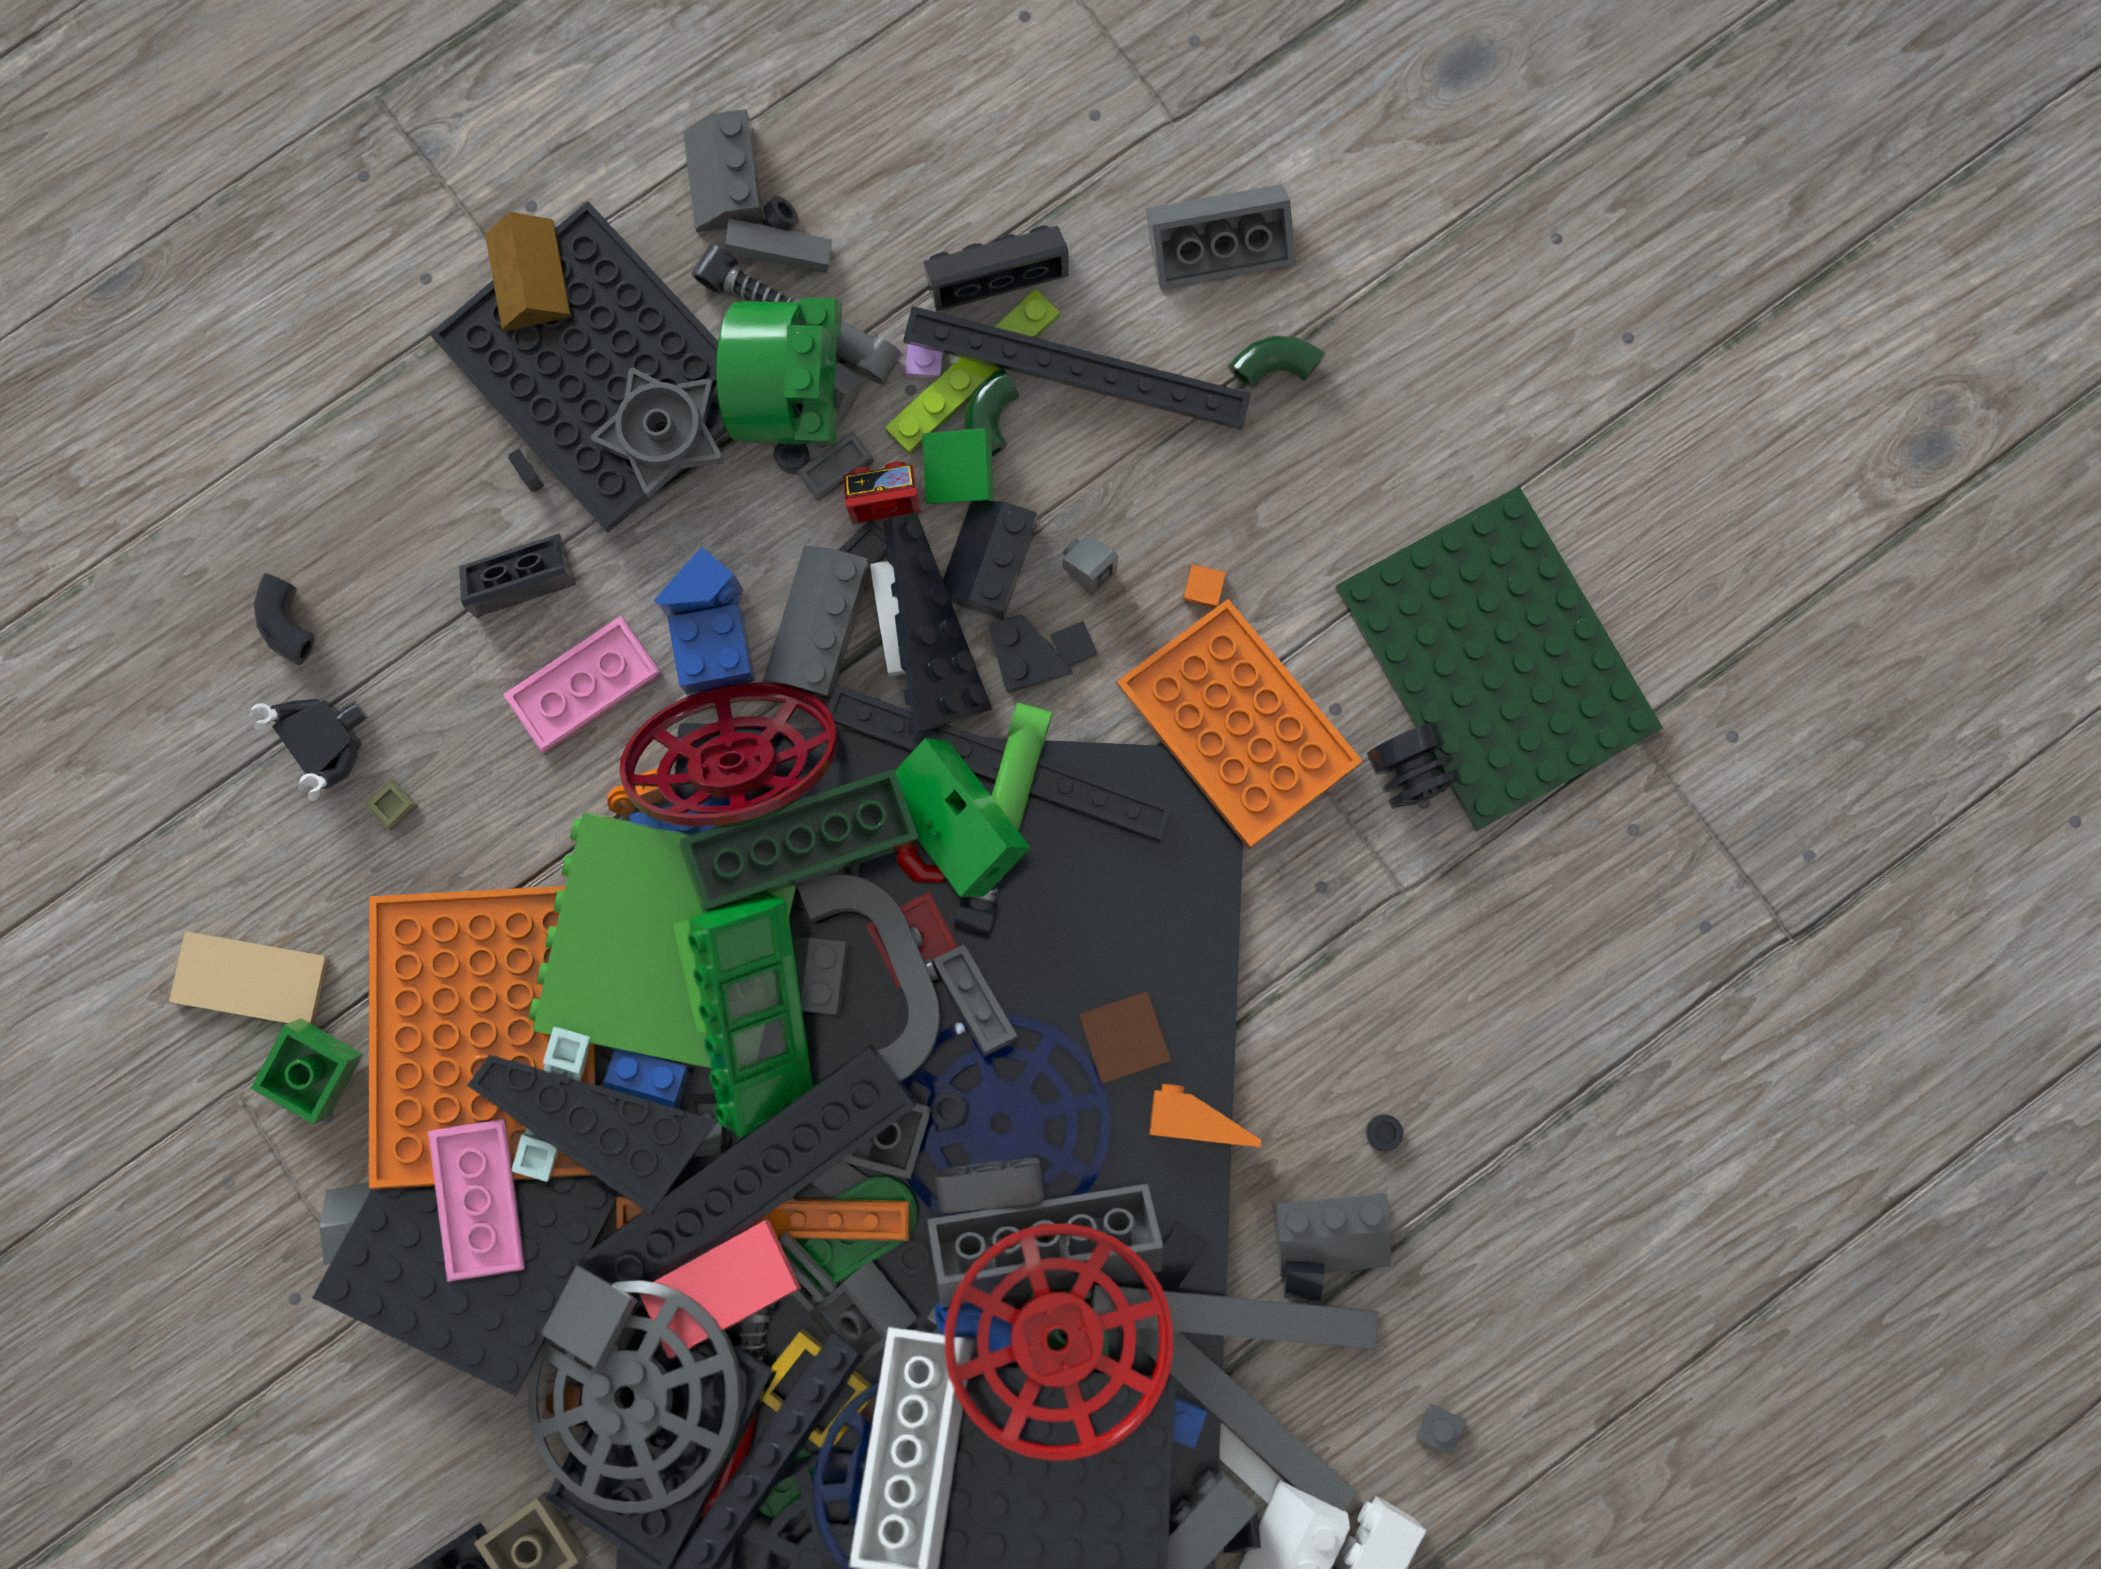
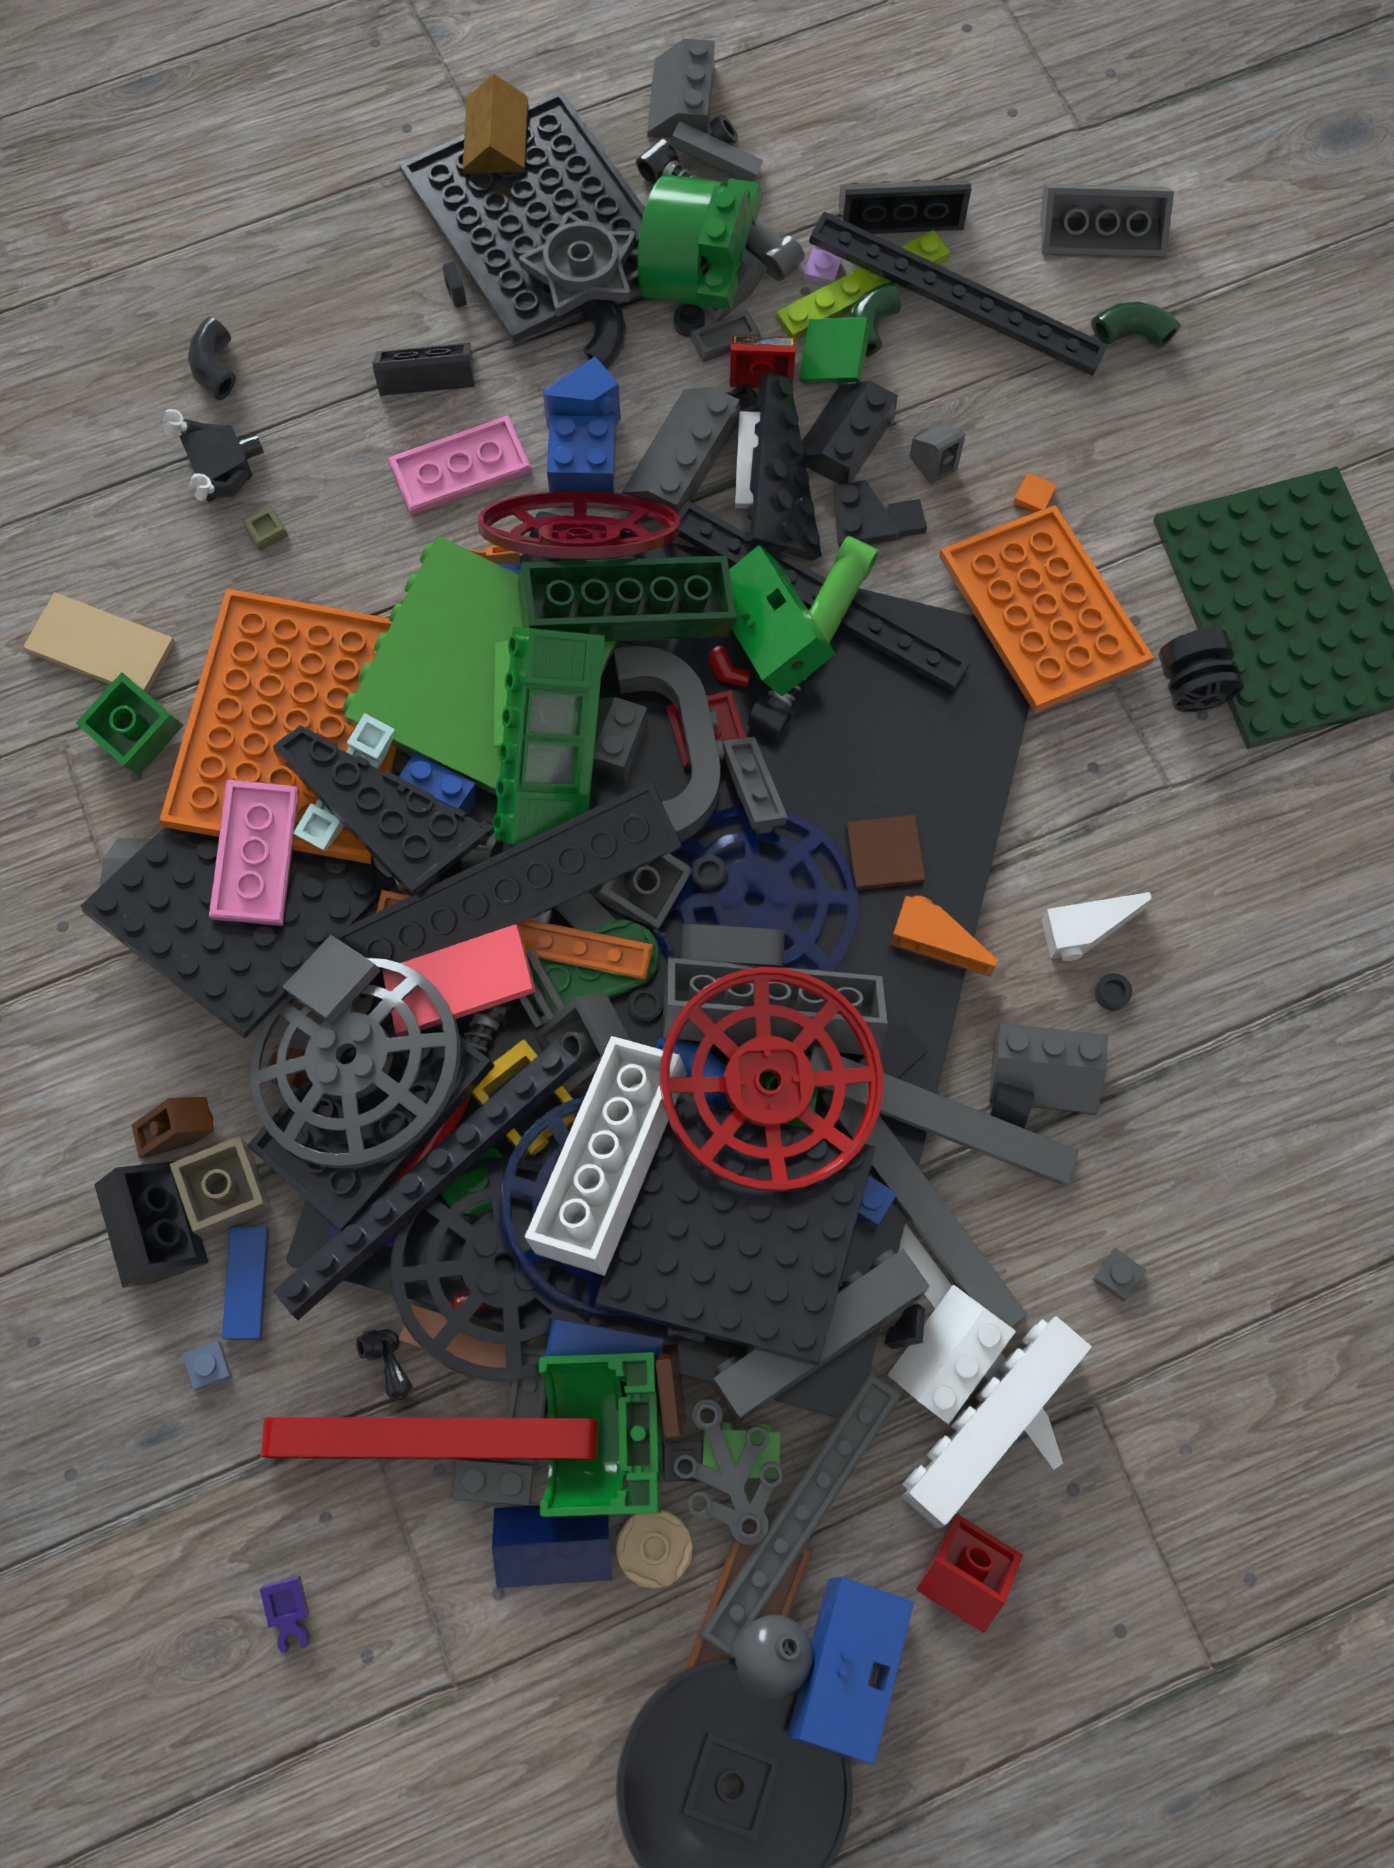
camera: 10 degrees right, 10 degrees down
(465, 1492) = (172, 1125): none -> reddish brown slope
(708, 497) = (608, 333): none -> black cylinder
(1344, 1072) = (1080, 927): none -> white slope

